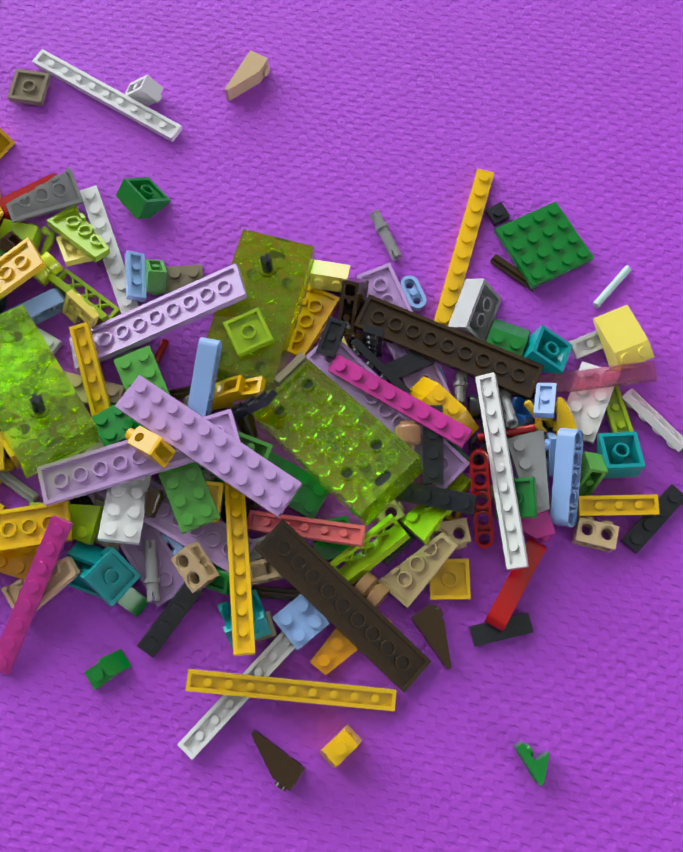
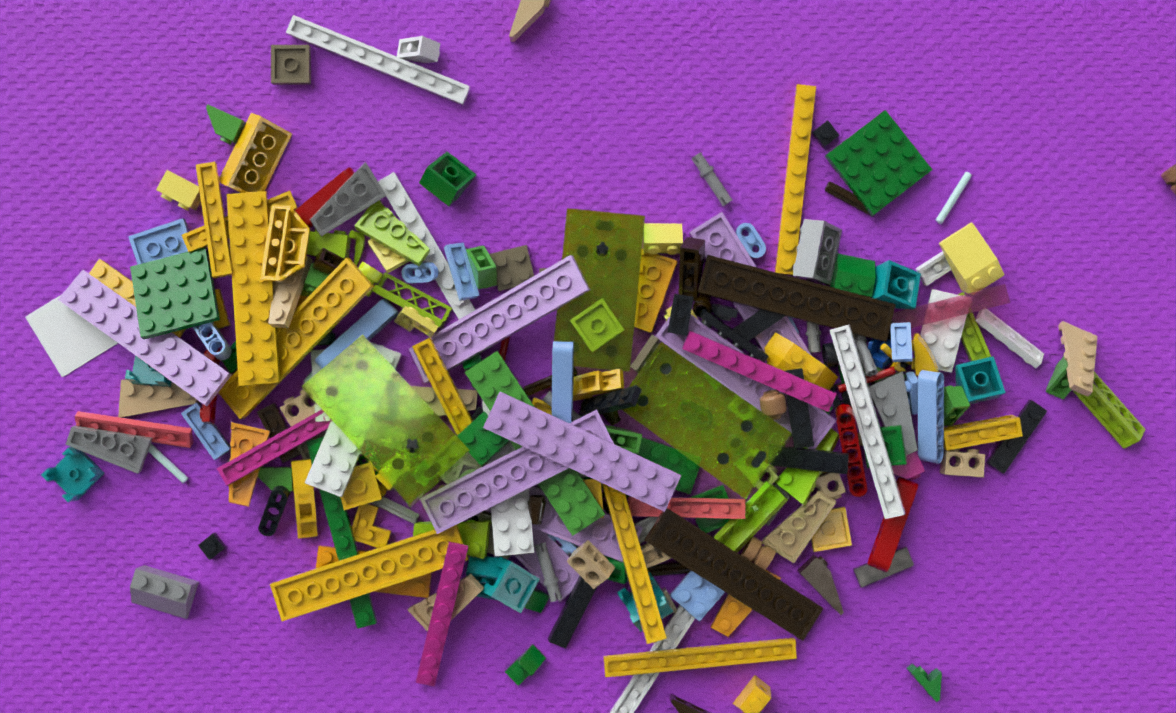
camera: 10 degrees left, 15 degrees up
(96, 271) = (421, 272): none -> light blue plate
(150, 445) = (533, 467): yellow torso -> none

